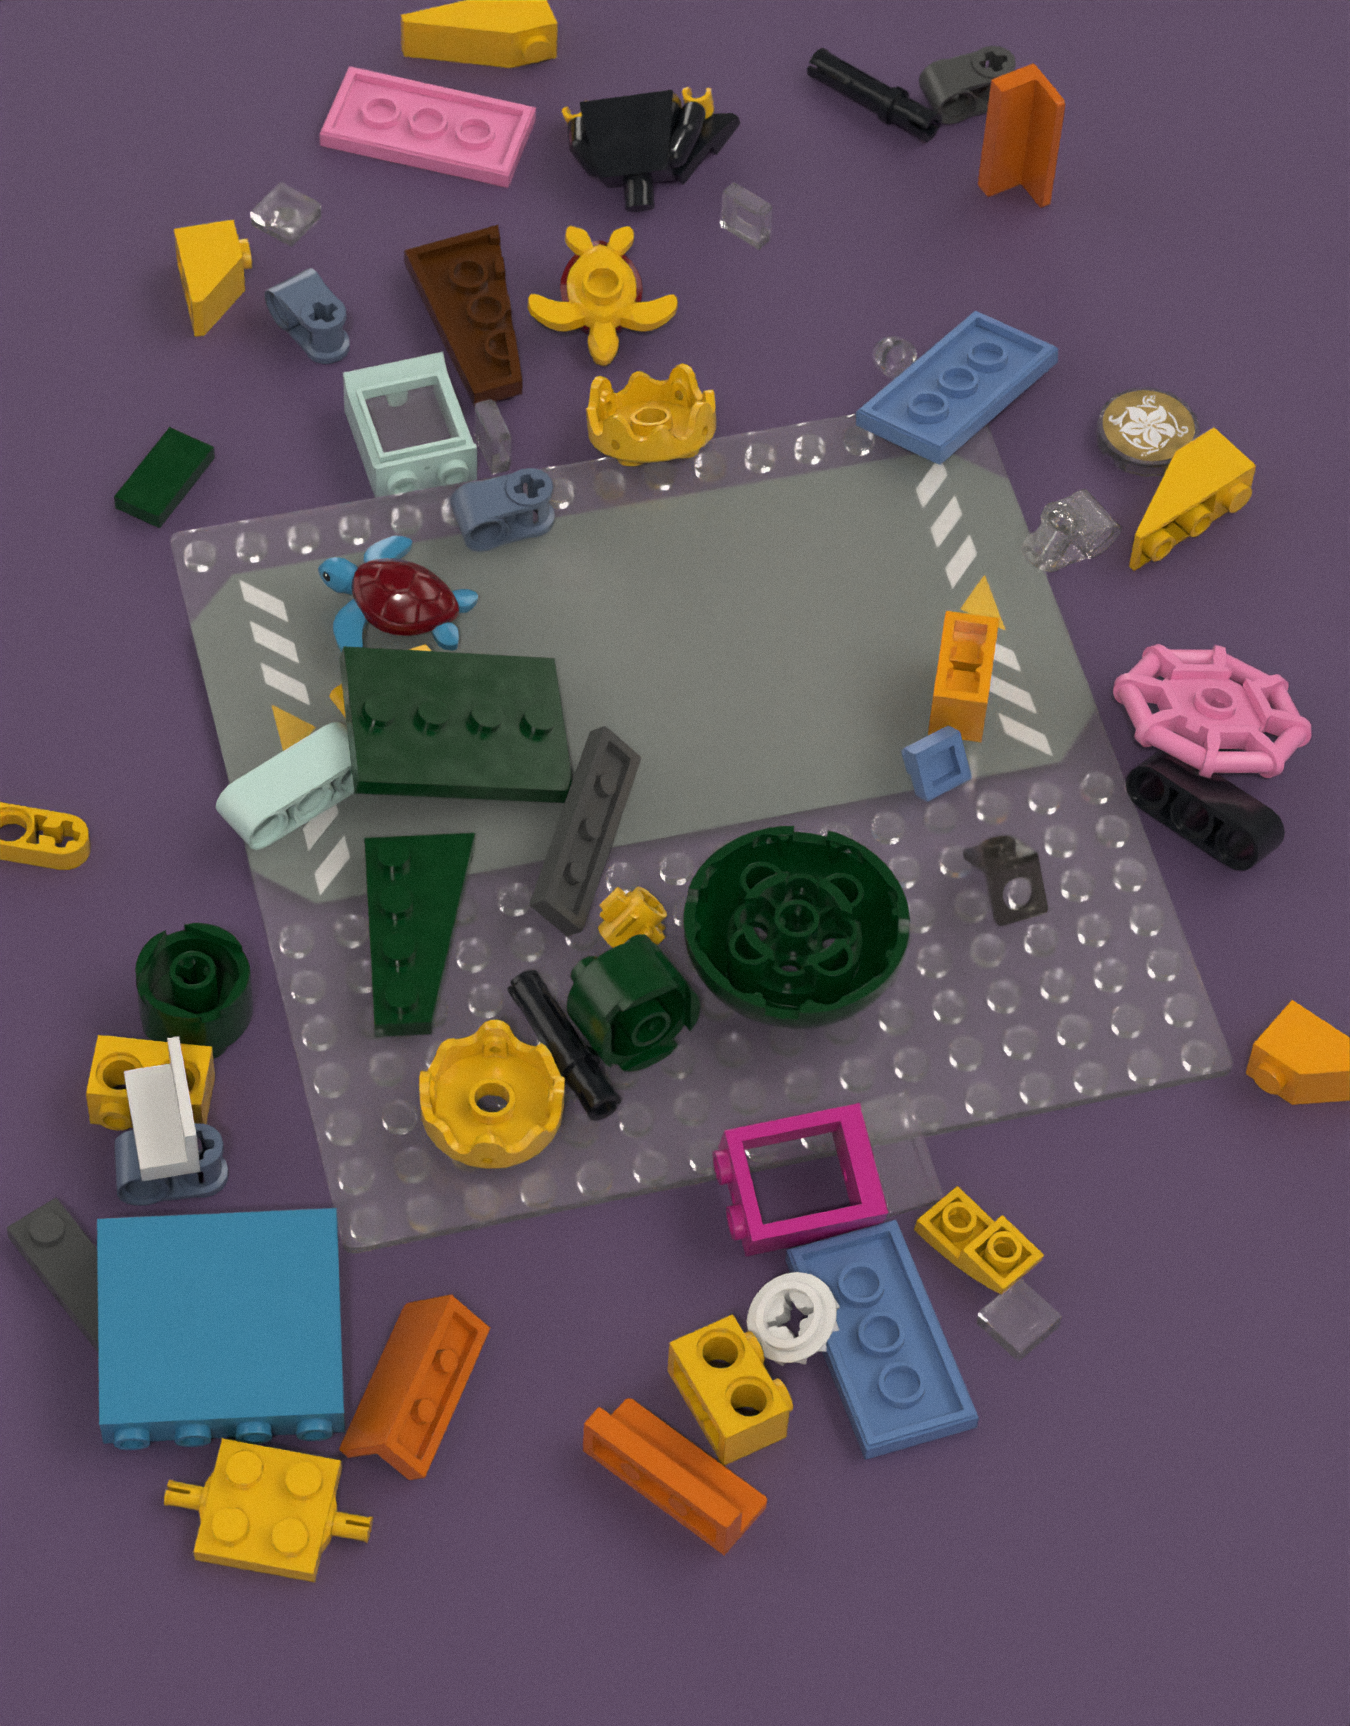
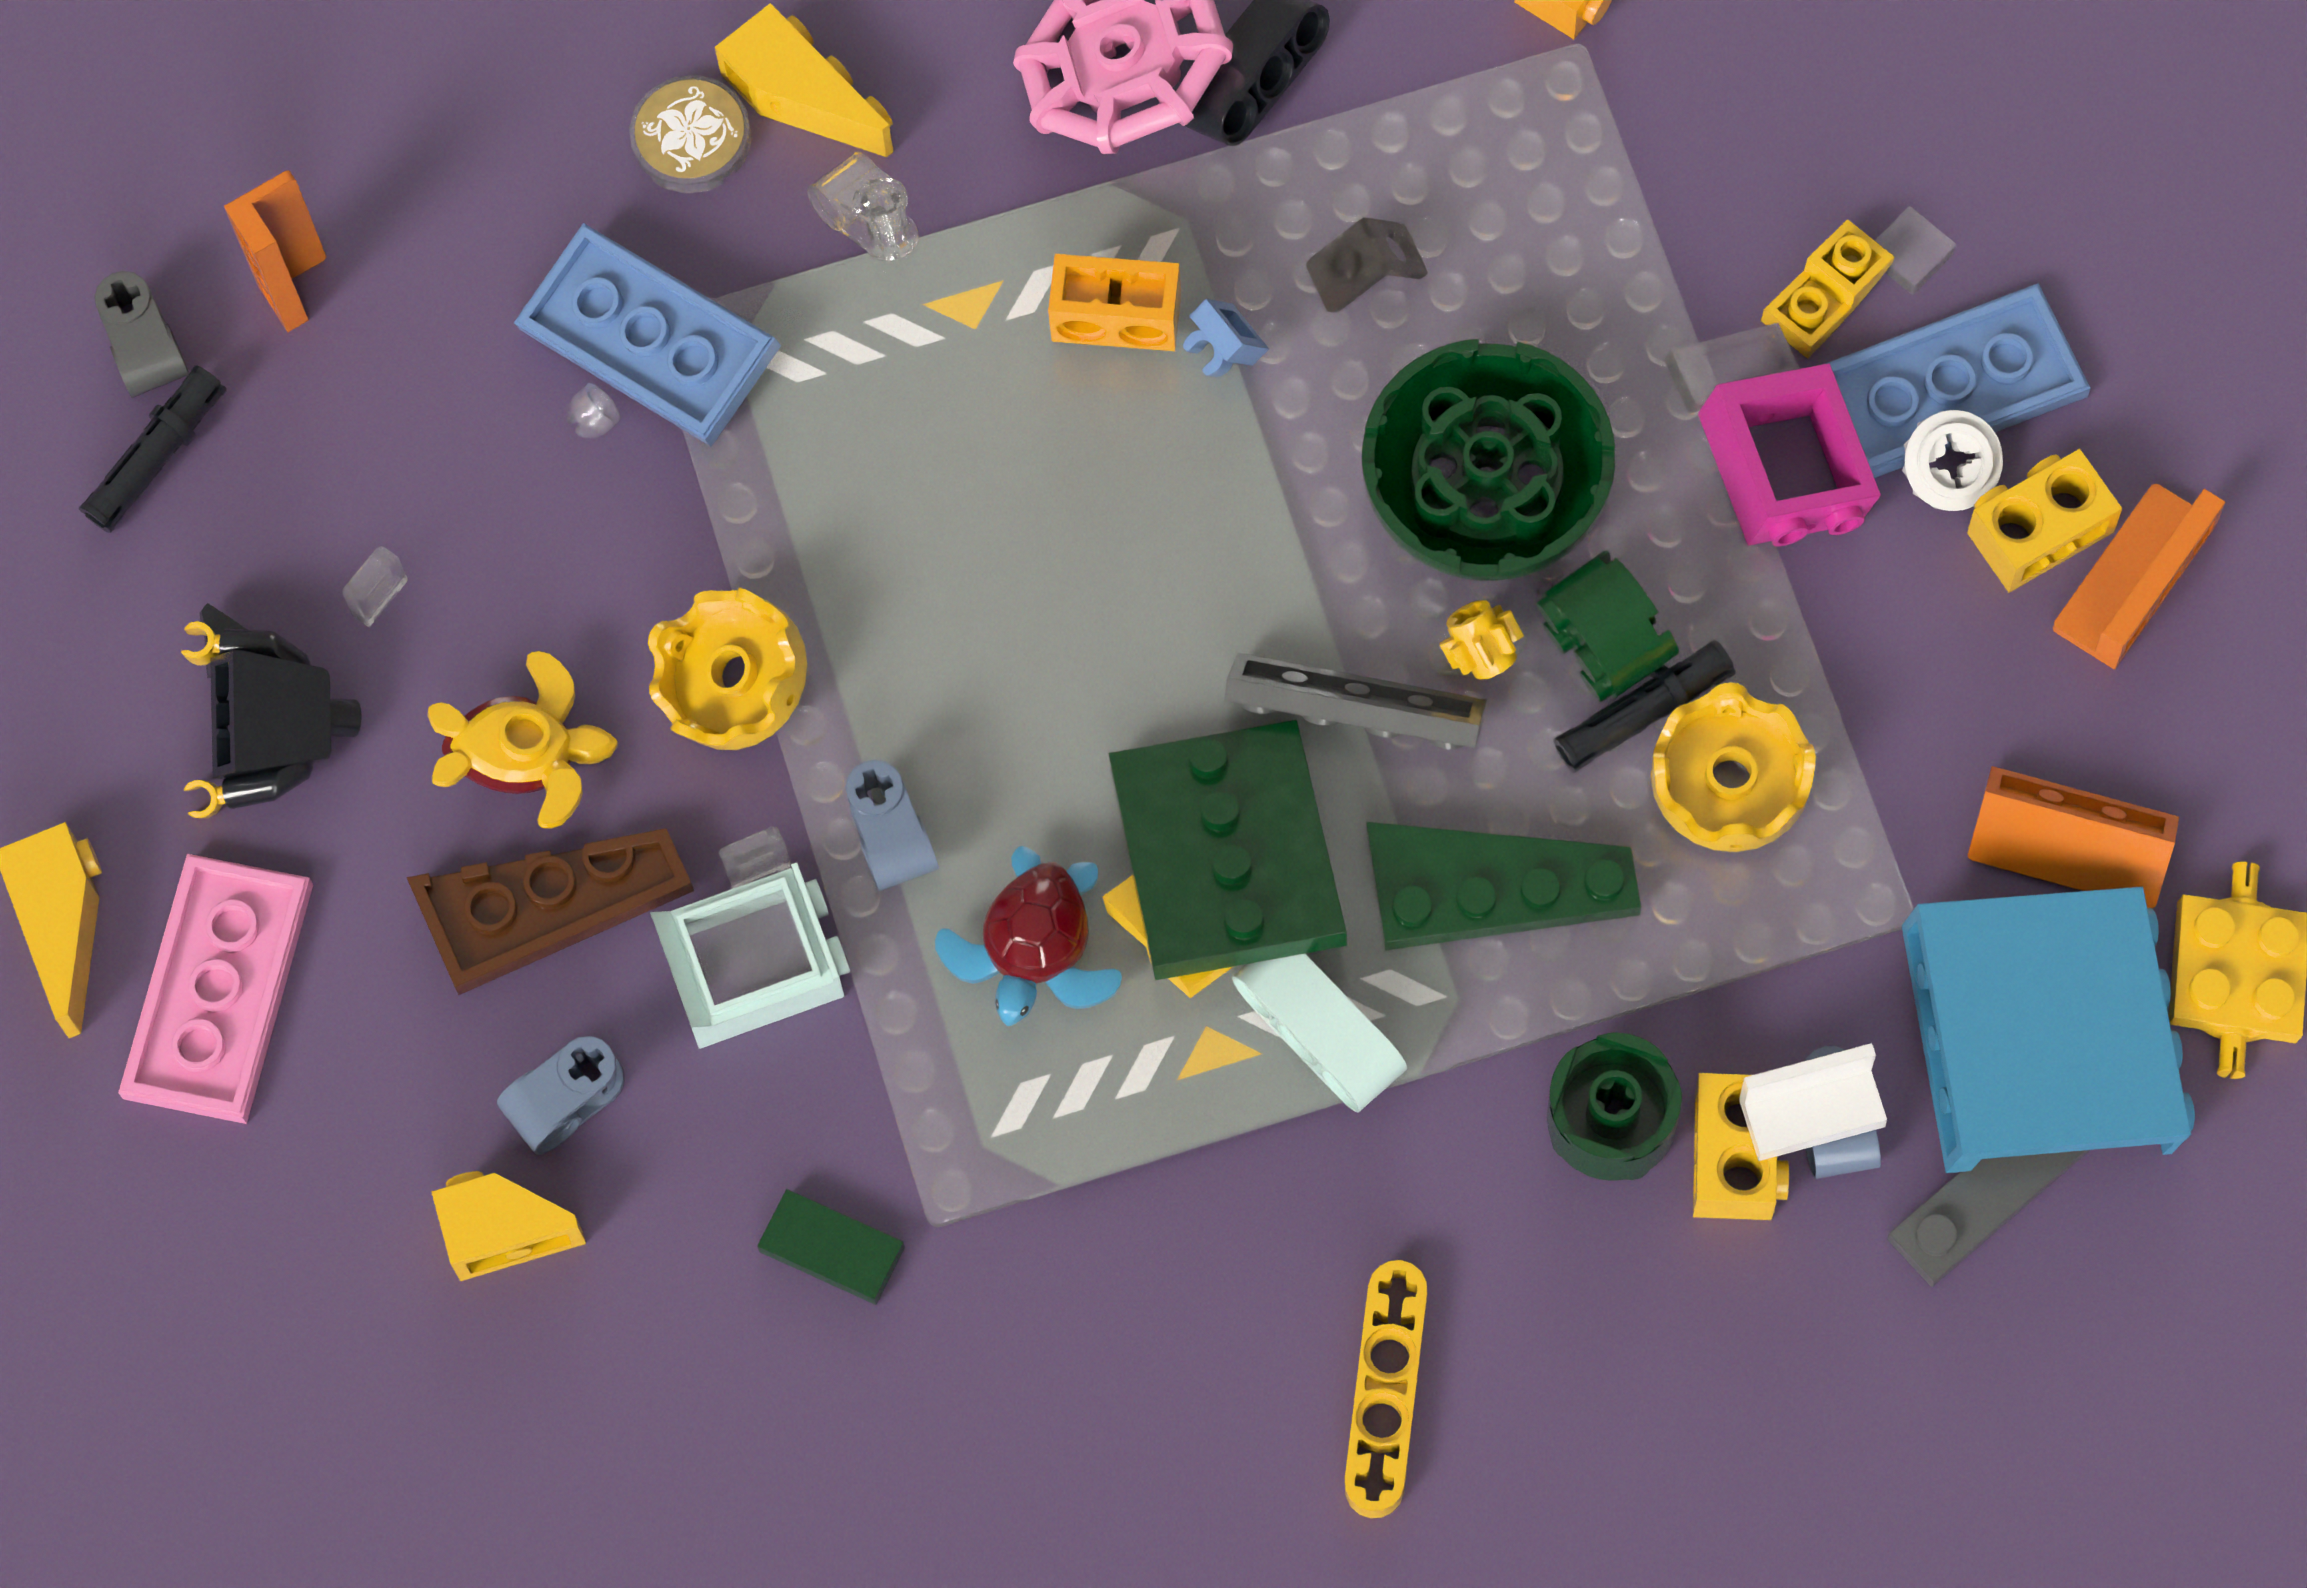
camera: 85 degrees left, 15 degrees up
(286, 214) = (389, 1143): clear plate -> none

